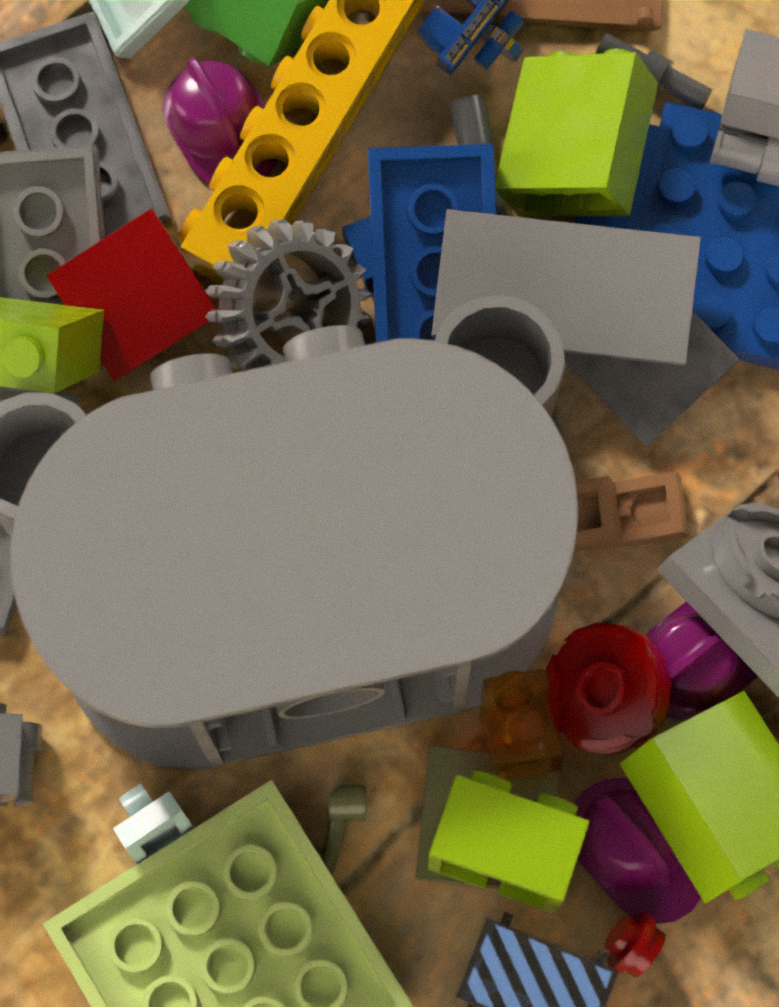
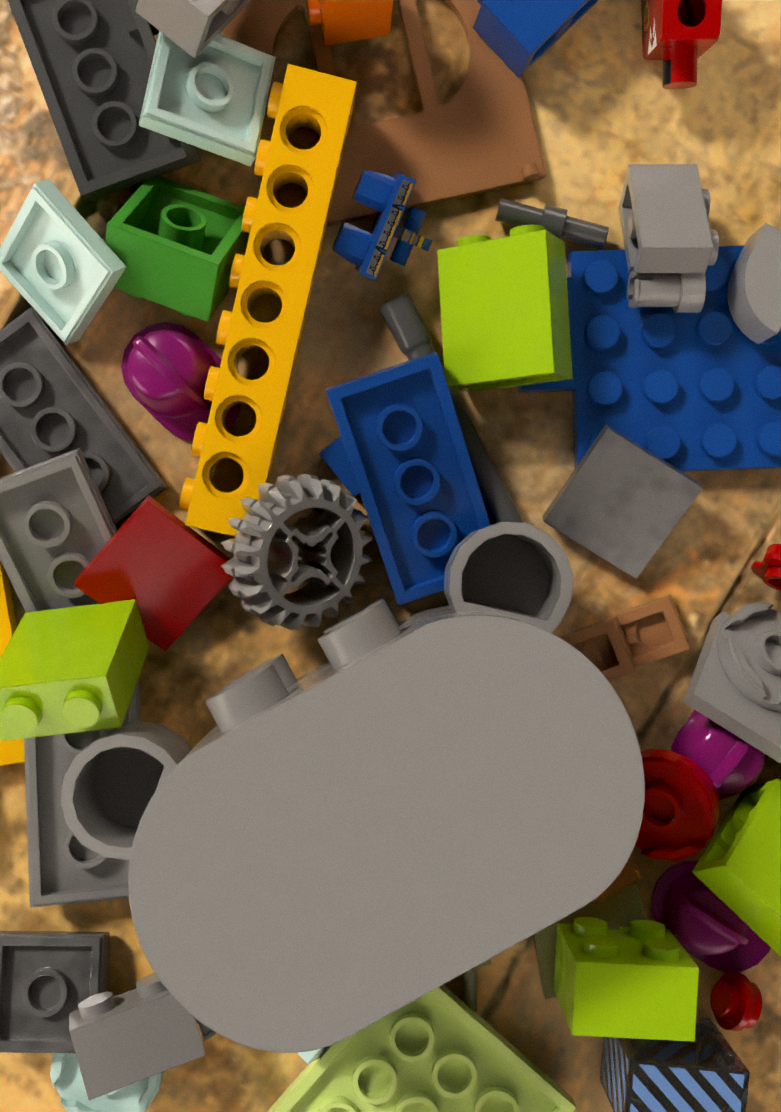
camera: 15 degrees left, 15 degrees up
(600, 285) = (540, 467): light grey tile -> none

